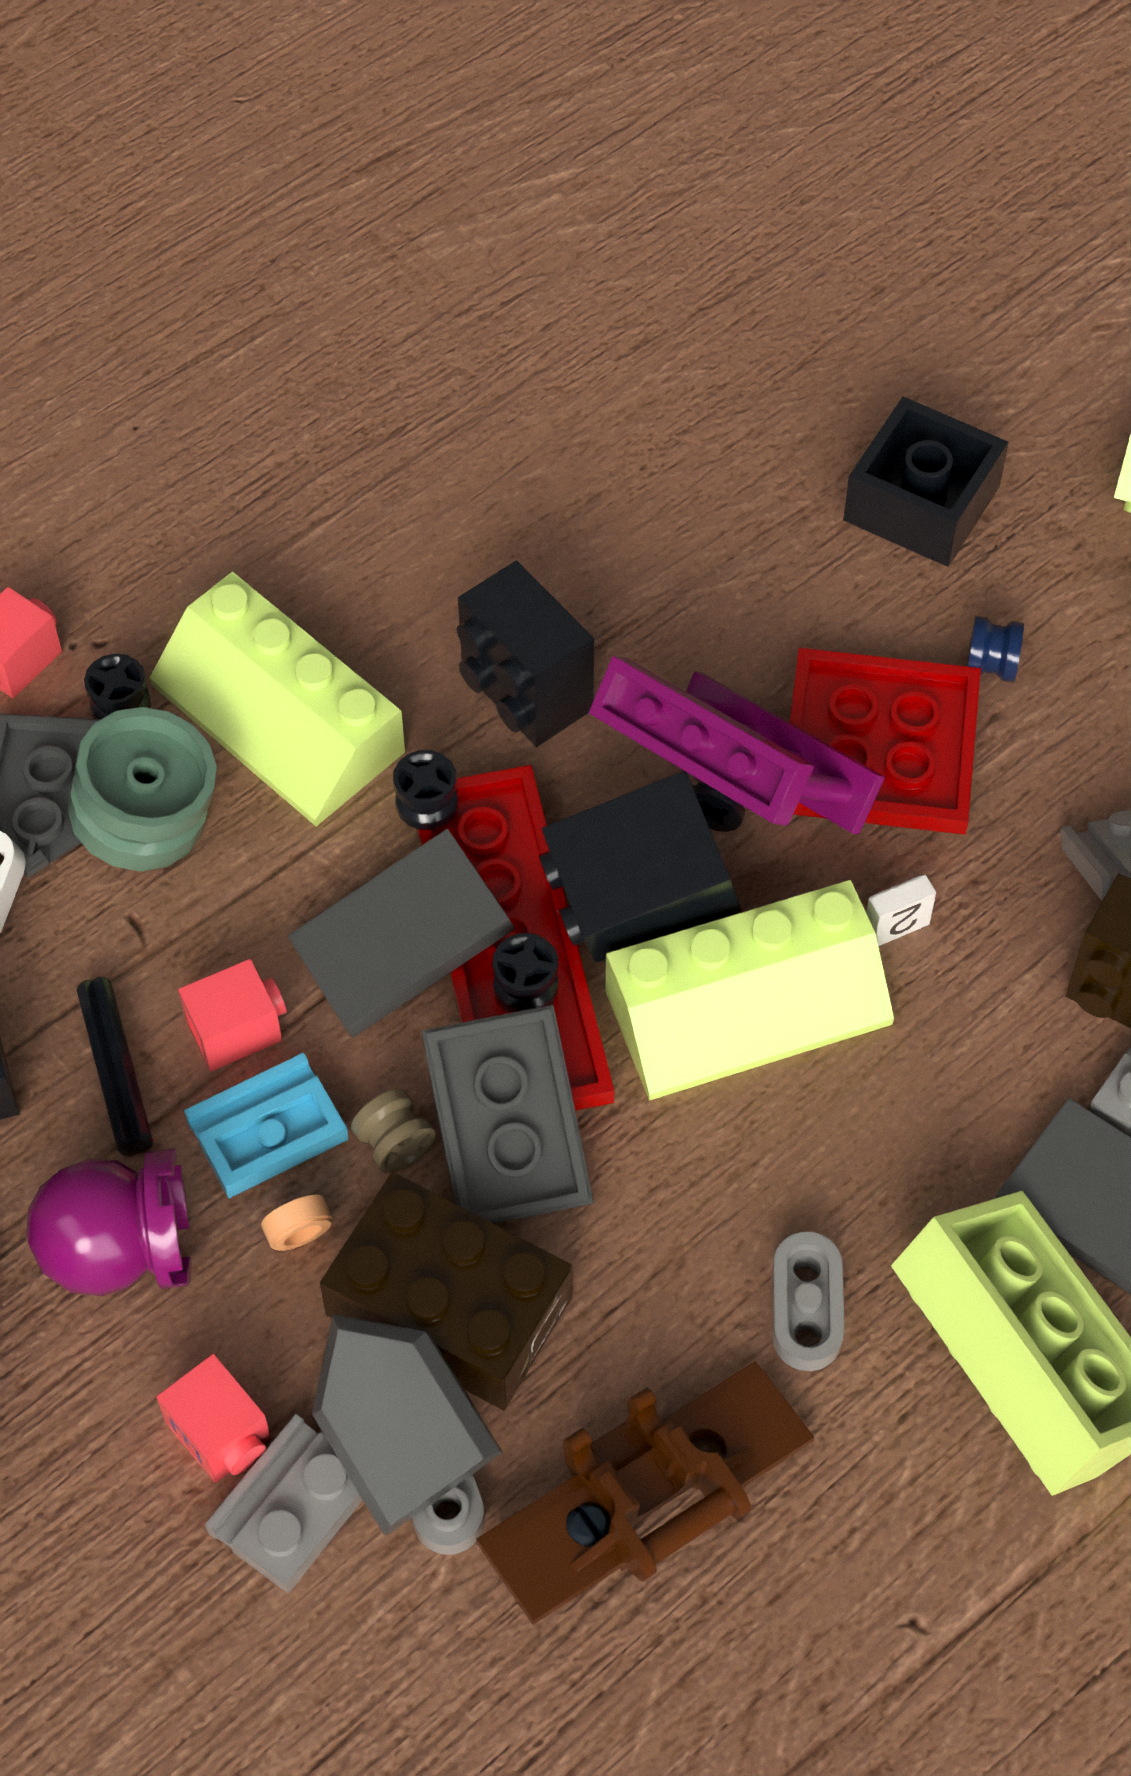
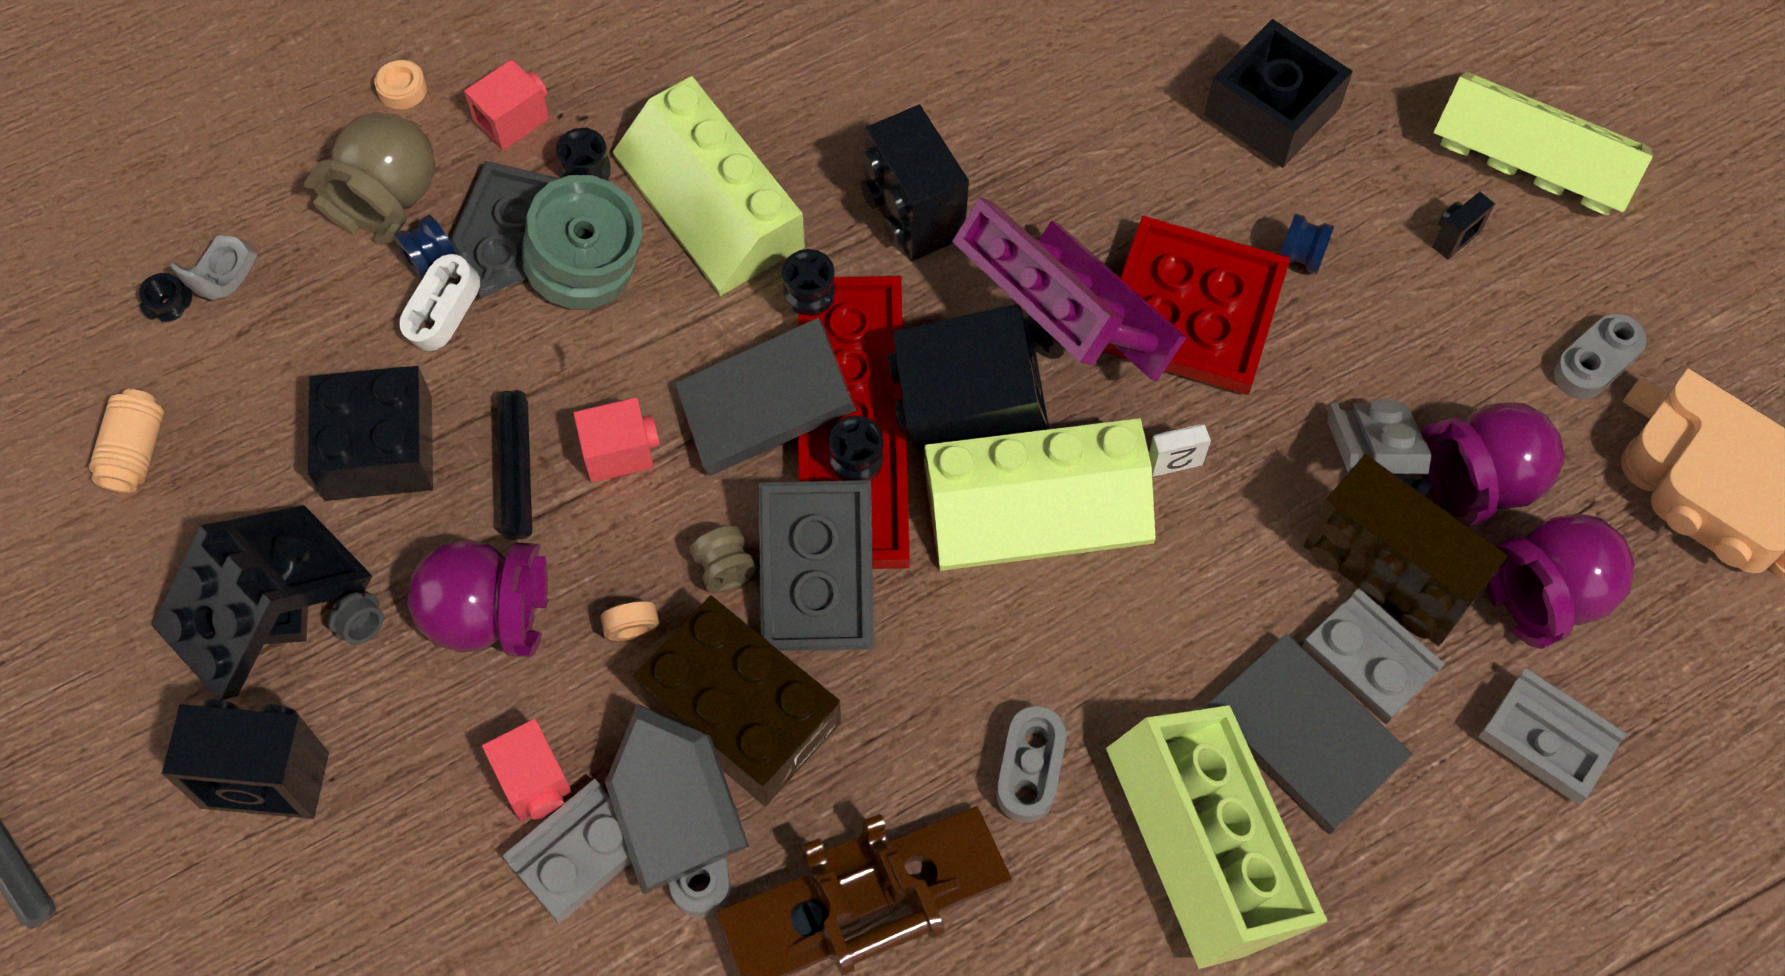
camera: 10 degrees right, 5 degrees up
(266, 1125) = (623, 535): medium azure plate -> none

